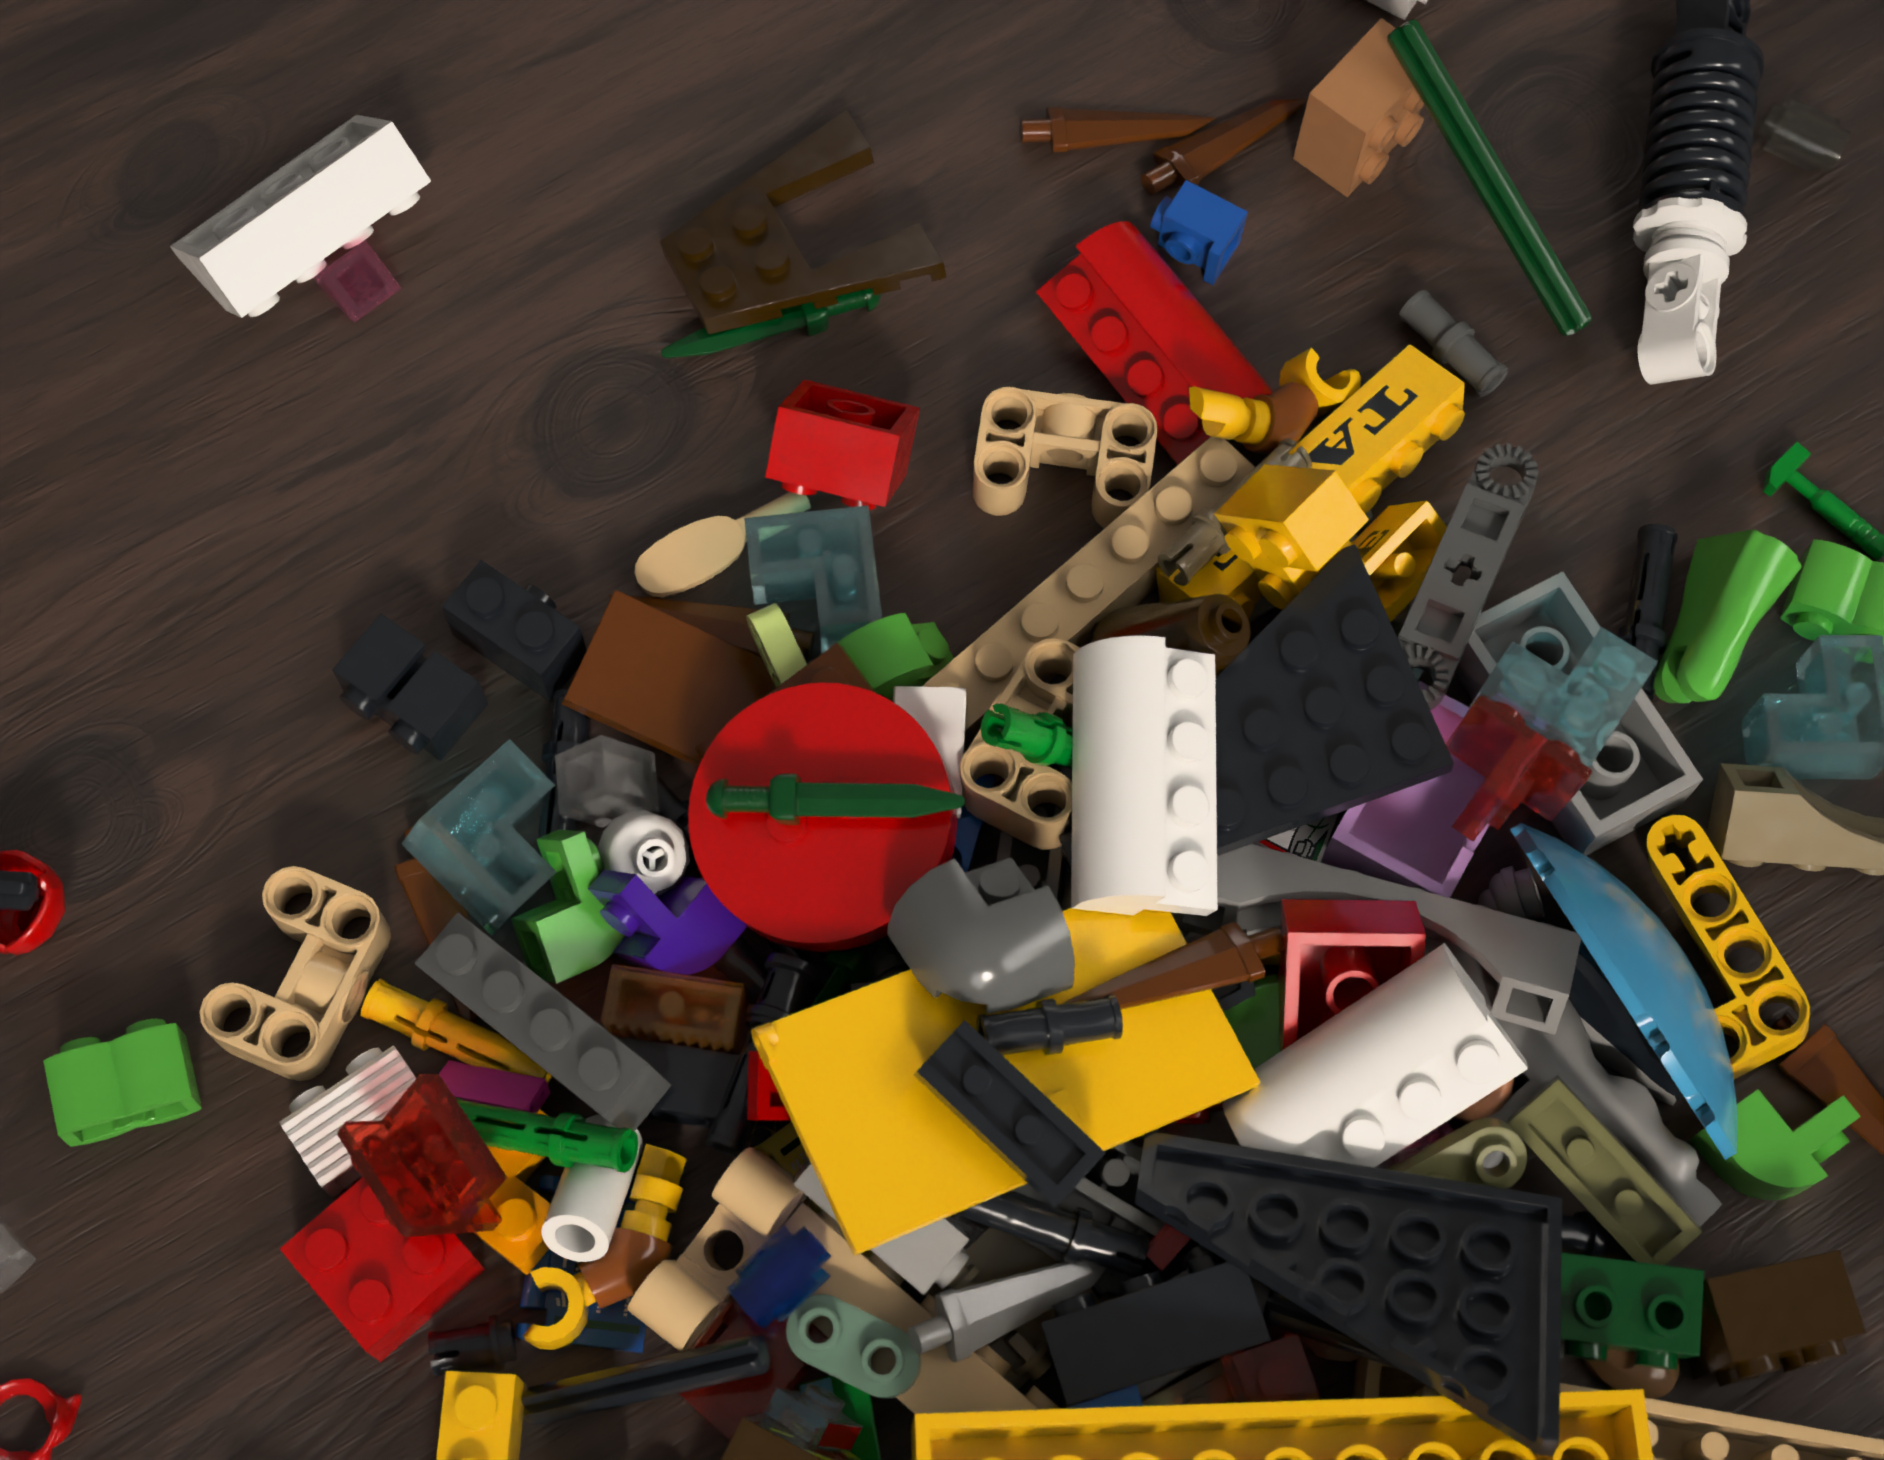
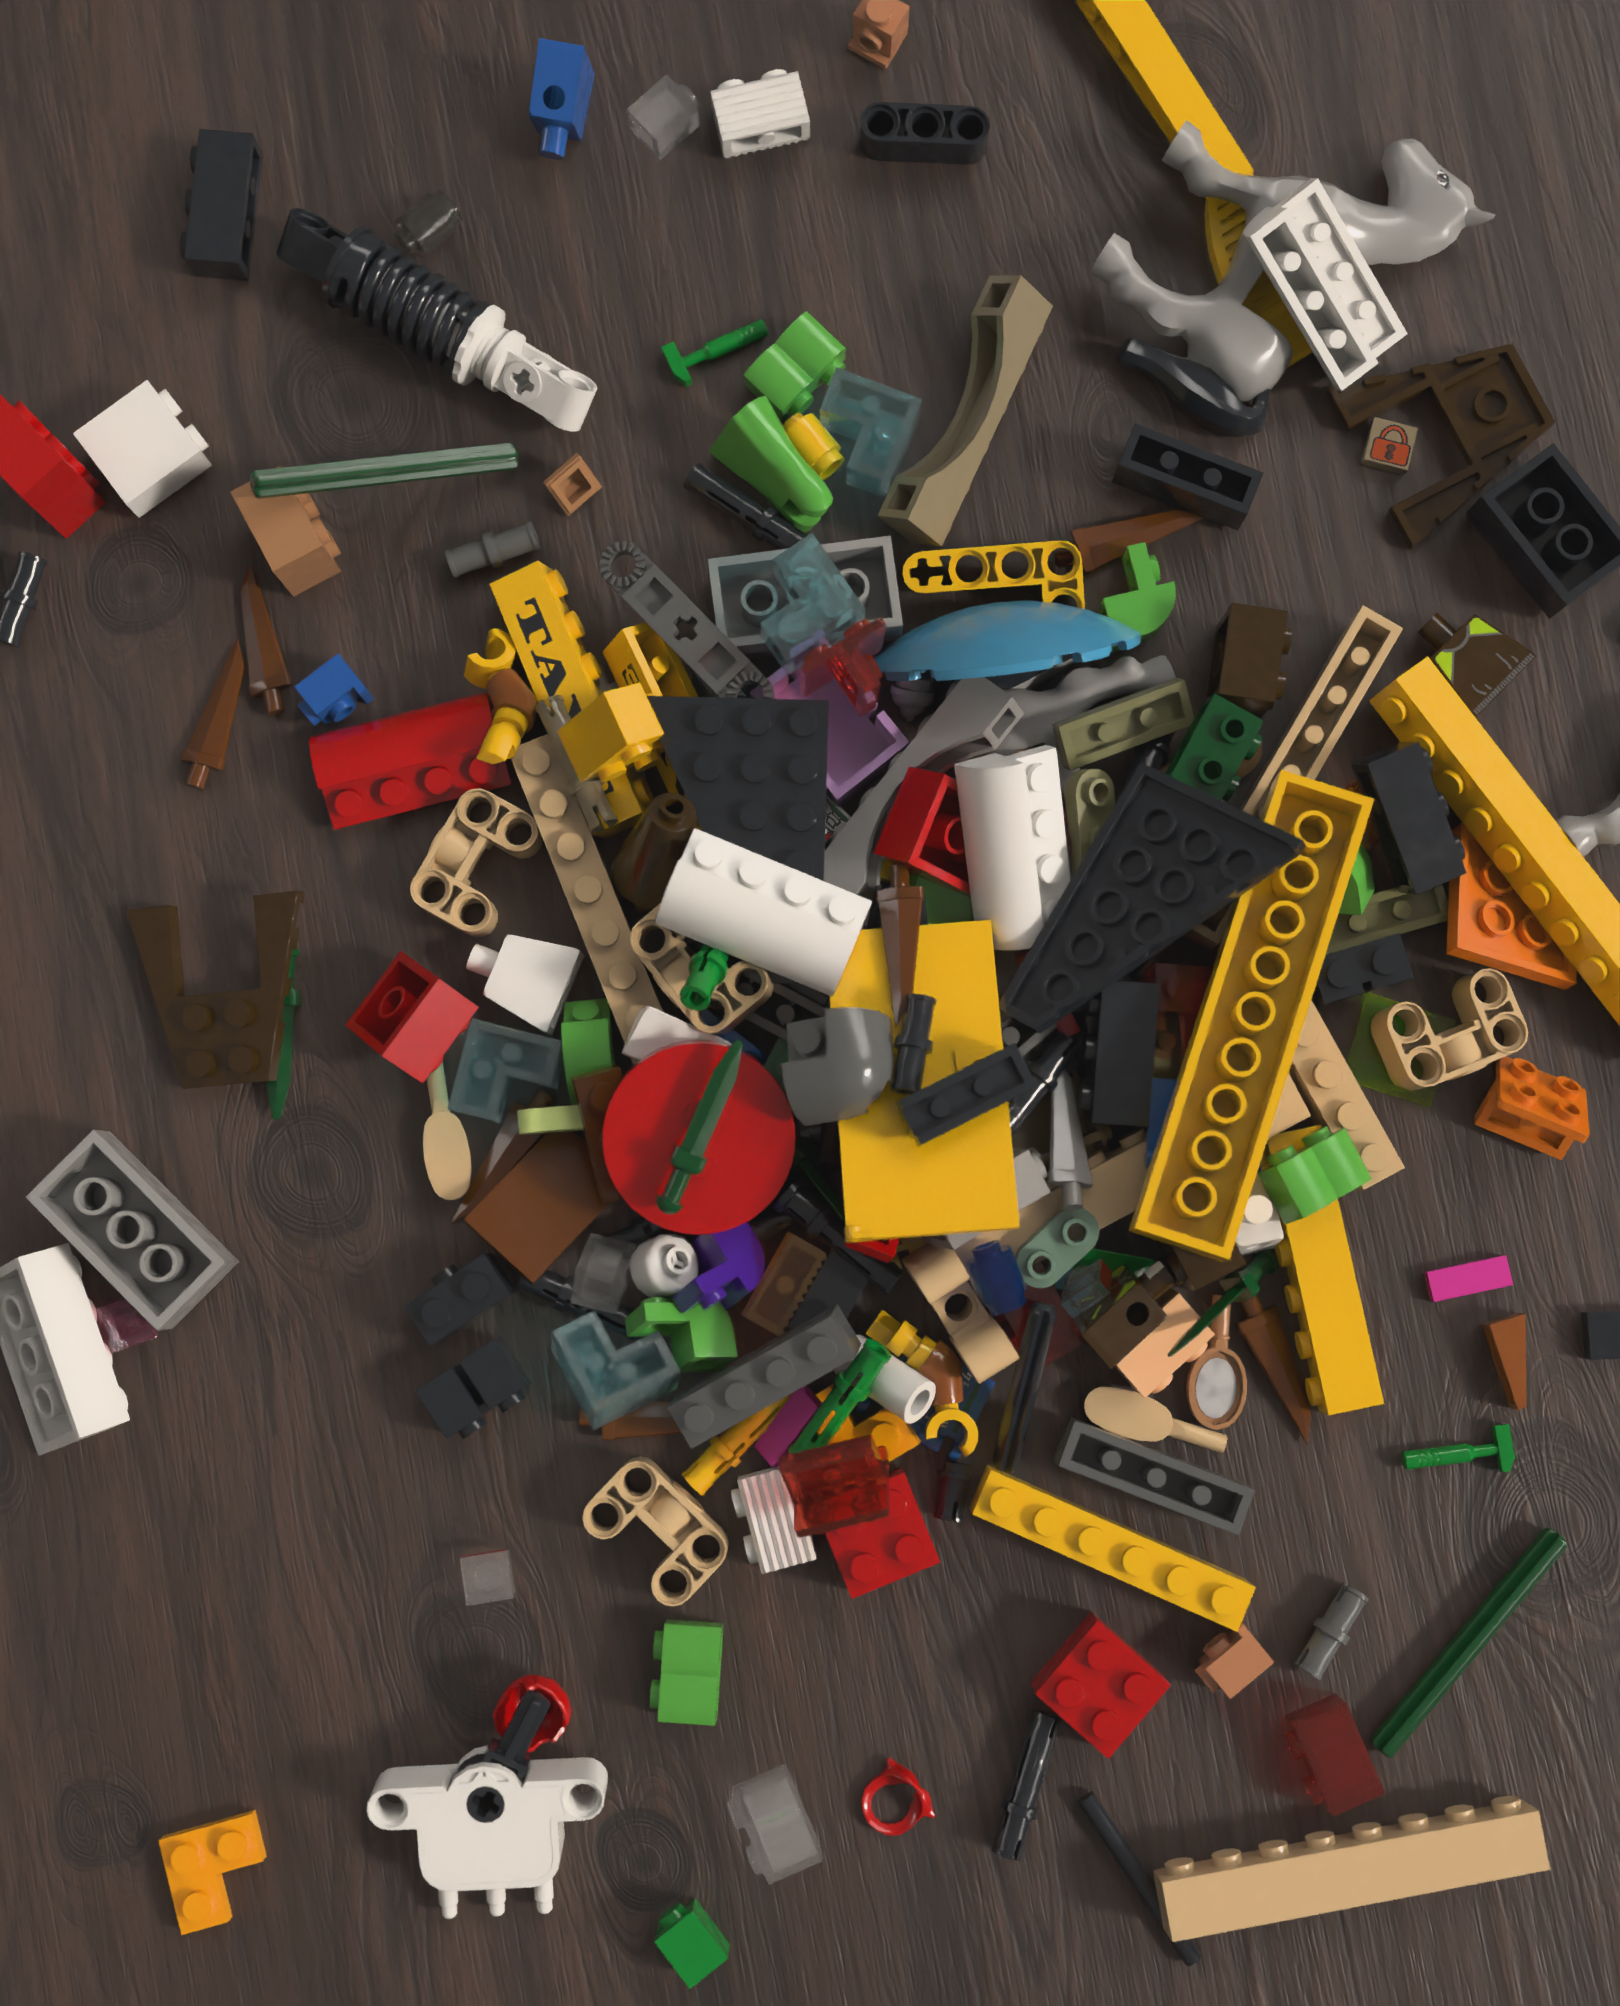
camera: 65 degrees left, 15 degrees up
(174, 790) = (487, 1577): none -> clear plate
(469, 241) = (132, 1229): none -> light grey brick
(947, 567) = (528, 977): none -> white torso
(1577, 401) = (572, 484): none -> medium nougat slope
(1769, 657) = (814, 444): none -> yellow brick

